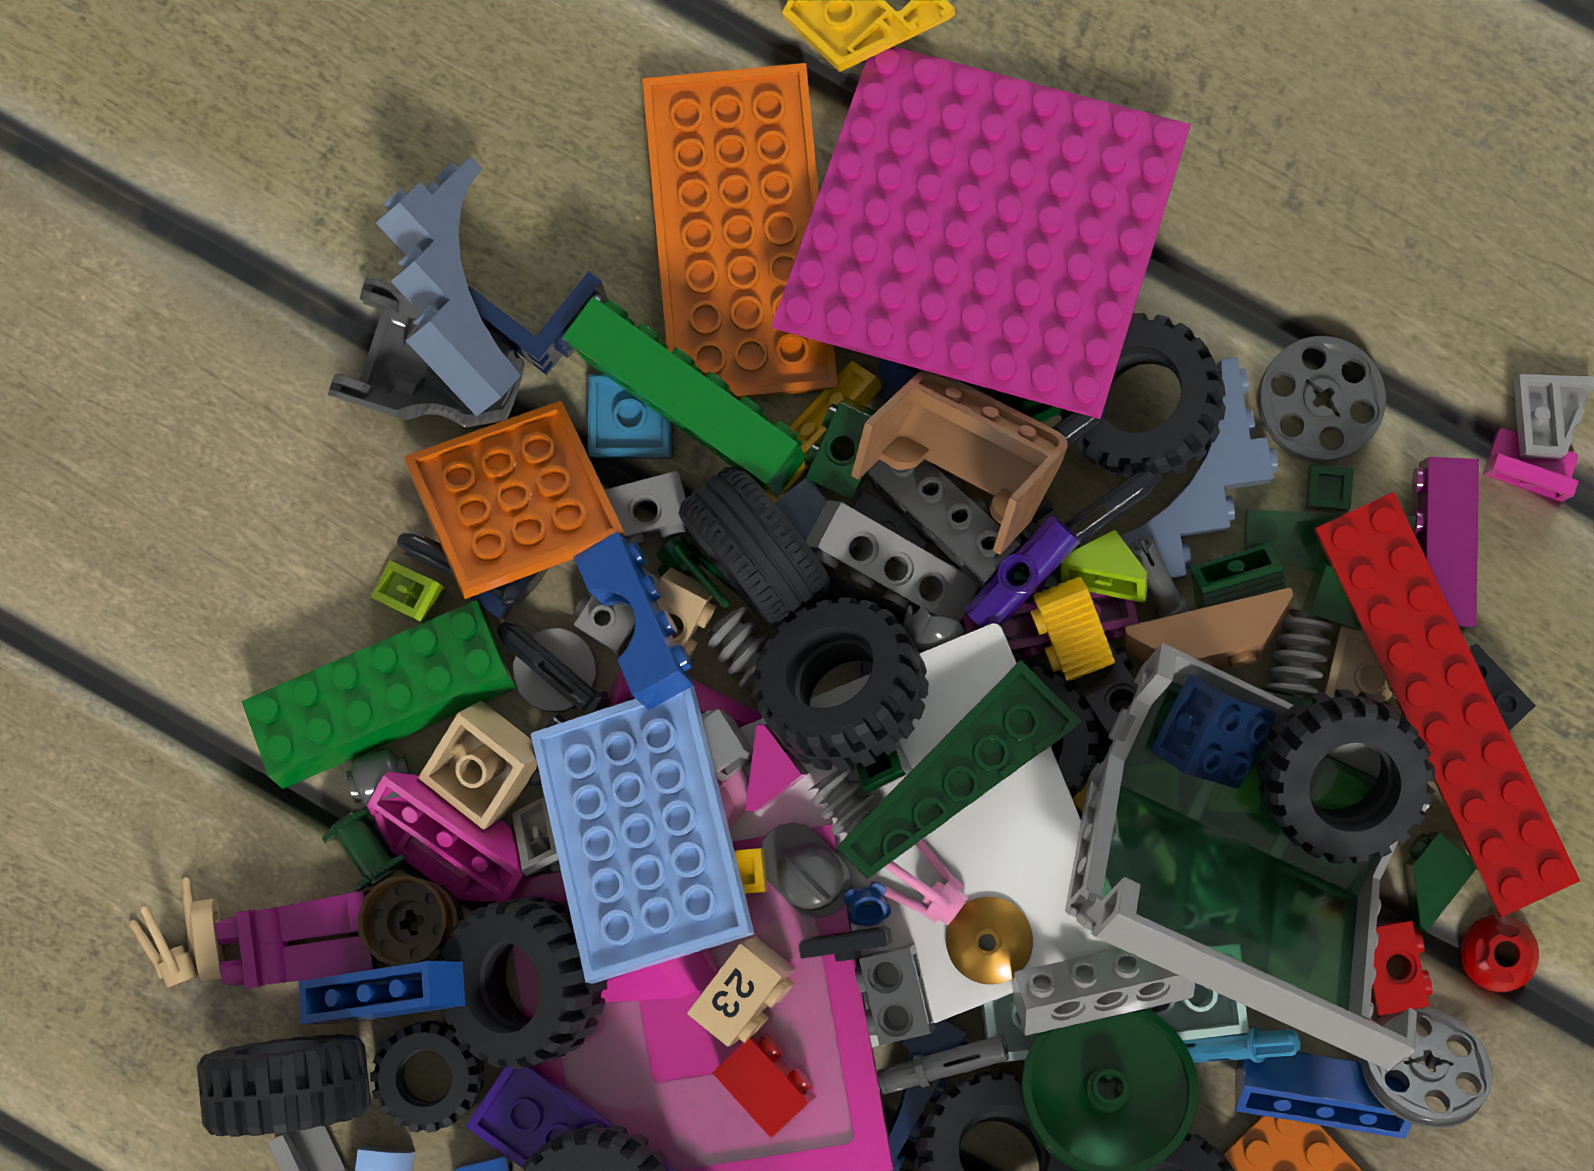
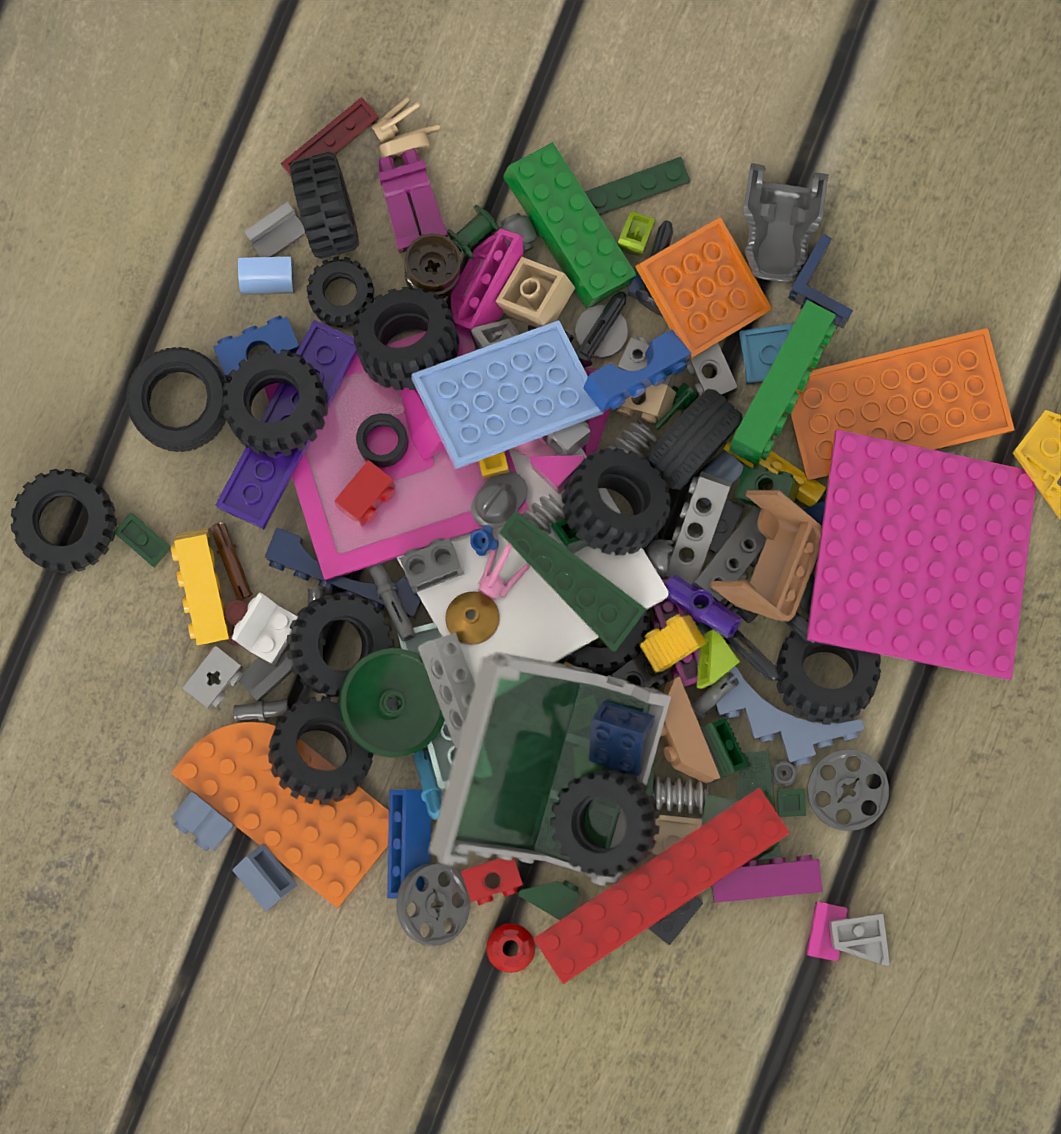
camera: 85 degrees right, 0 degrees up
(168, 1044) = (337, 133): none -> dark red plate
(333, 577) = (638, 186): none -> dark green plate
(382, 992) = (387, 254): blue brick -> none
(433, 280) = (831, 214): sand blue arch -> none
(656, 1067) = (382, 420): none -> black tyre
(742, 991) = (419, 470): tan brick -> none
(846, 944) = (457, 530): black plate -> none
(1293, 489) = (790, 769): none -> dark grey plate

